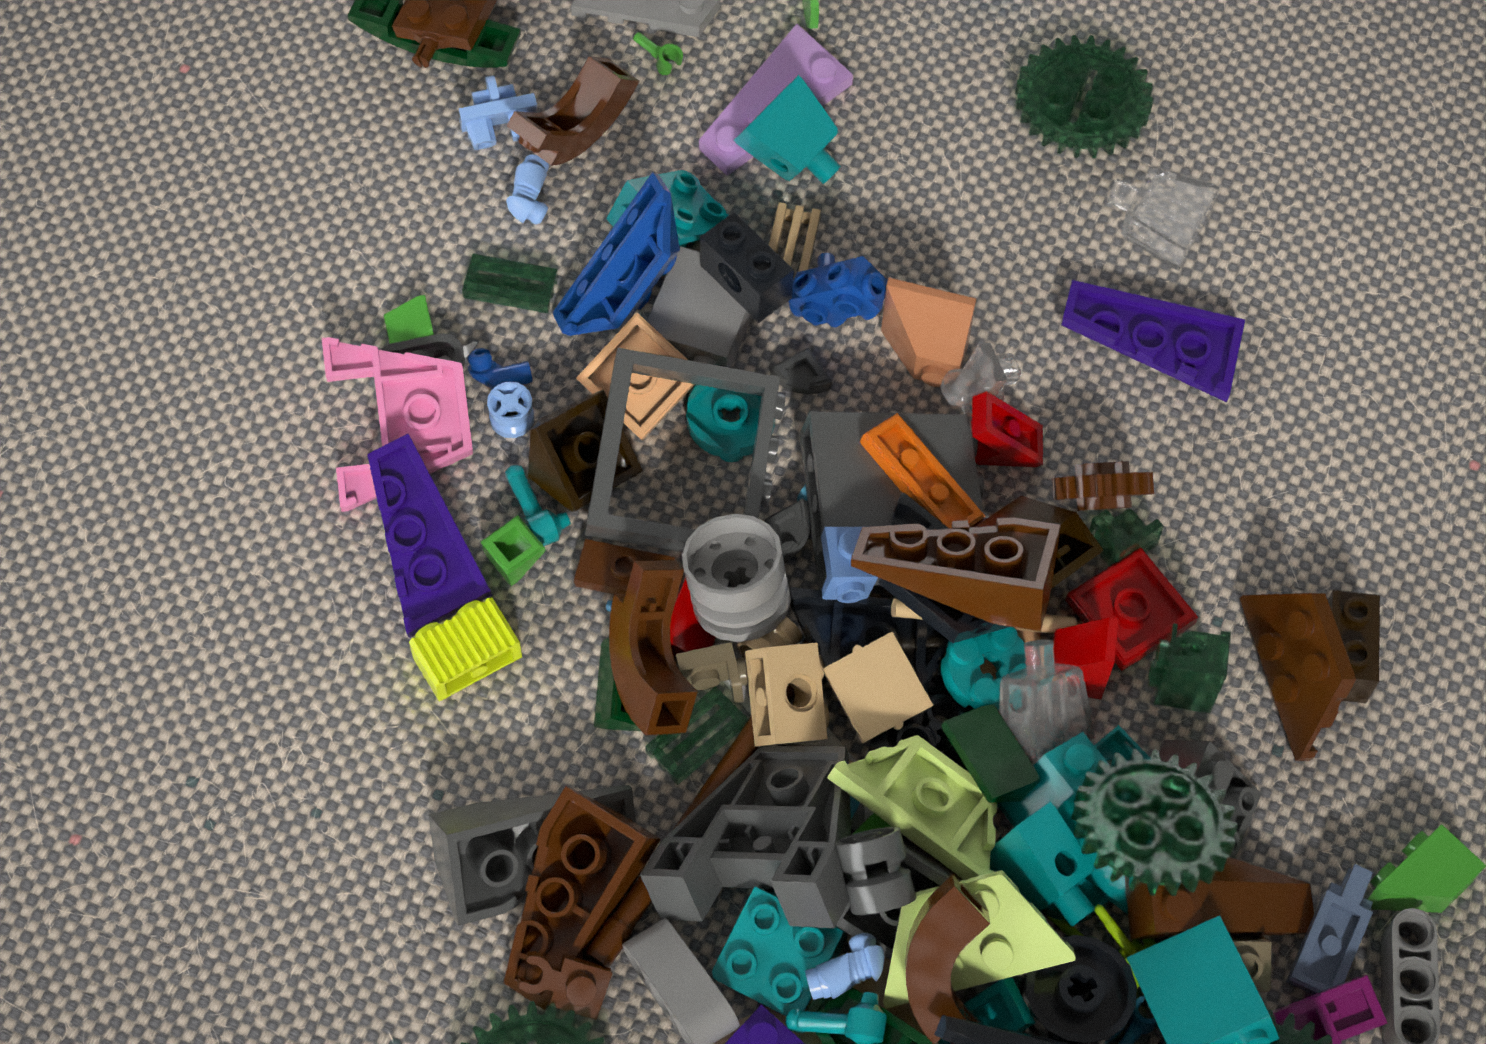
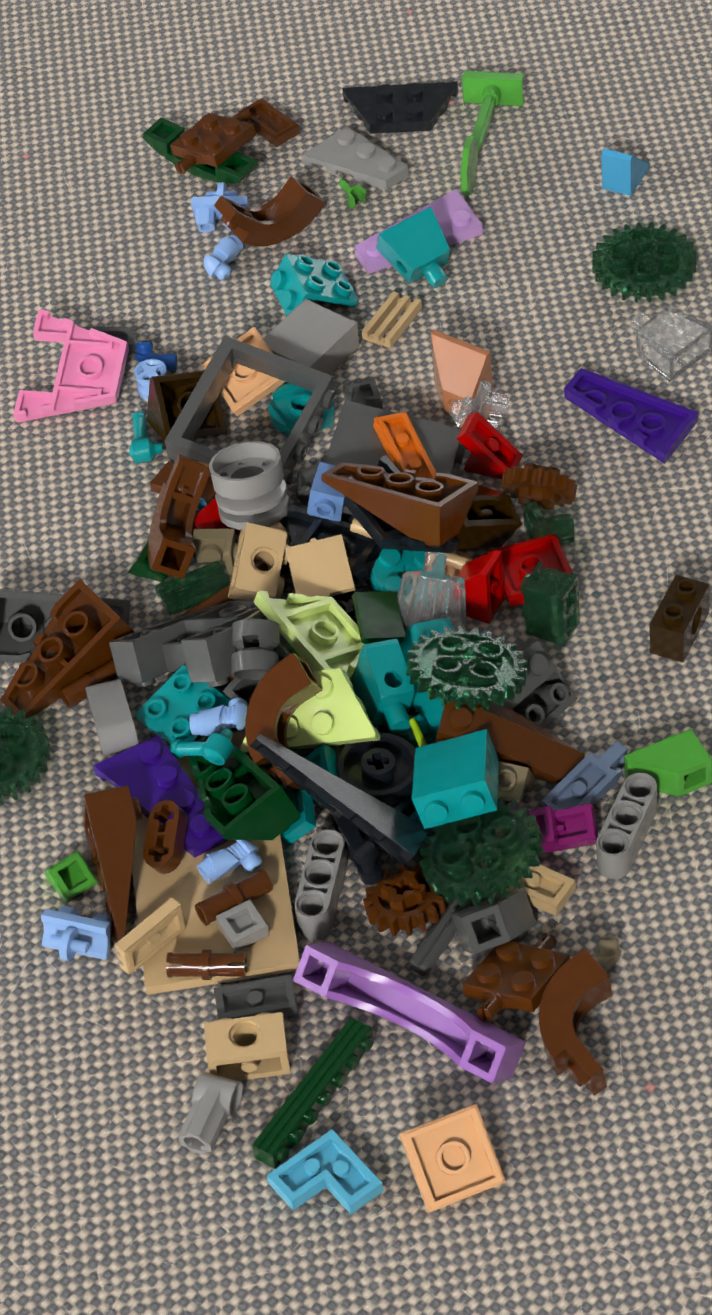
camera: 25 degrees right, 15 degrees down
(409, 321) = (109, 316): bright green slope -> none
(425, 546) = (59, 445): dark purple wing -> none
(464, 648) = (58, 506): neon yellow brick -> none
(508, 289) = (183, 313): clear green tile -> none
(513, 550) = (115, 457): bright green slope -> none
(573, 984) = (43, 703): reddish brown plate -> none
(624, 266) = (264, 300): blue wedge -> none
(746, 267) = (341, 312): black brick -> none
(838, 291) = (402, 344): blue brick -> none
(1301, 662) = (635, 618): reddish brown wing -> none

